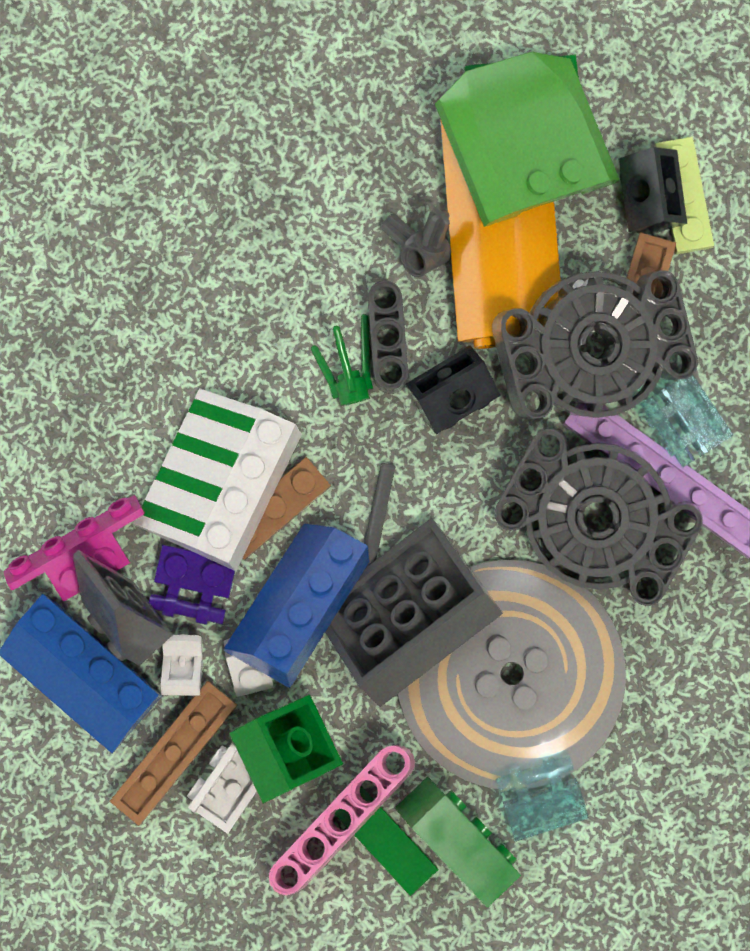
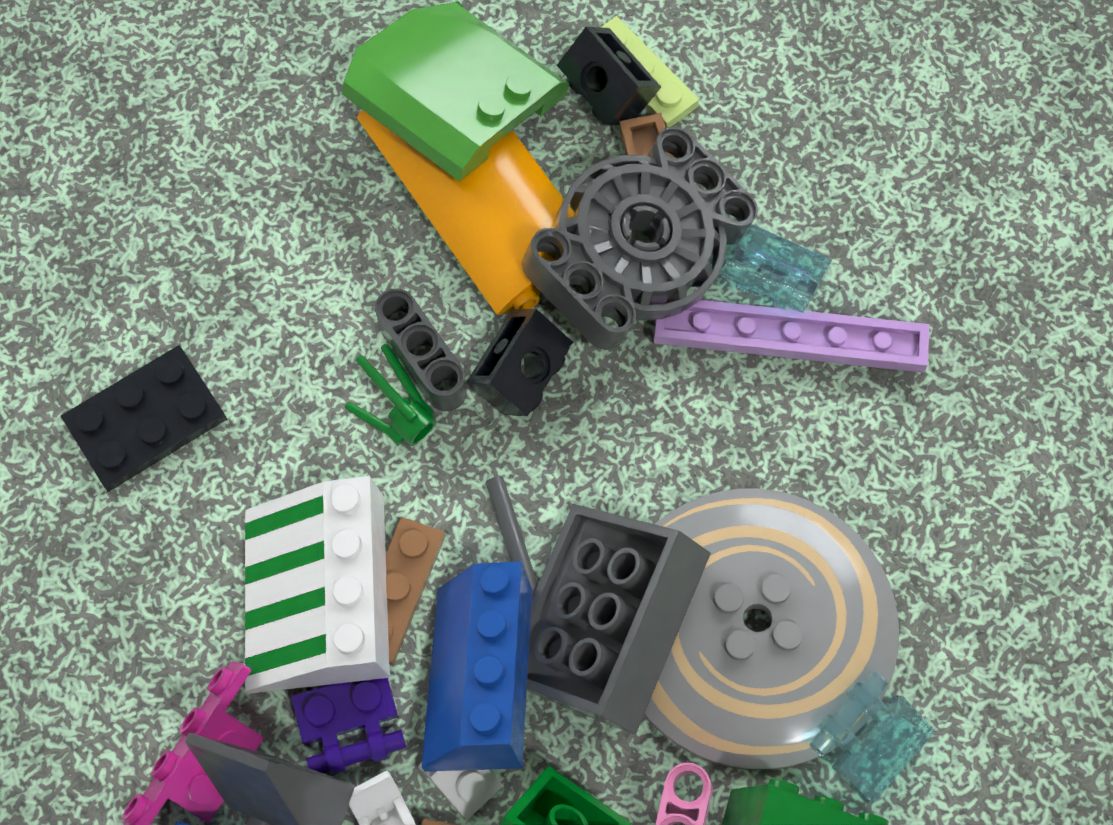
camera: 30 degrees left, 15 degrees down
(161, 276) = (143, 418): none -> black plate
(422, 249) = (410, 244): dark grey axle -> none
(623, 545) = (758, 363): dark grey piece -> none

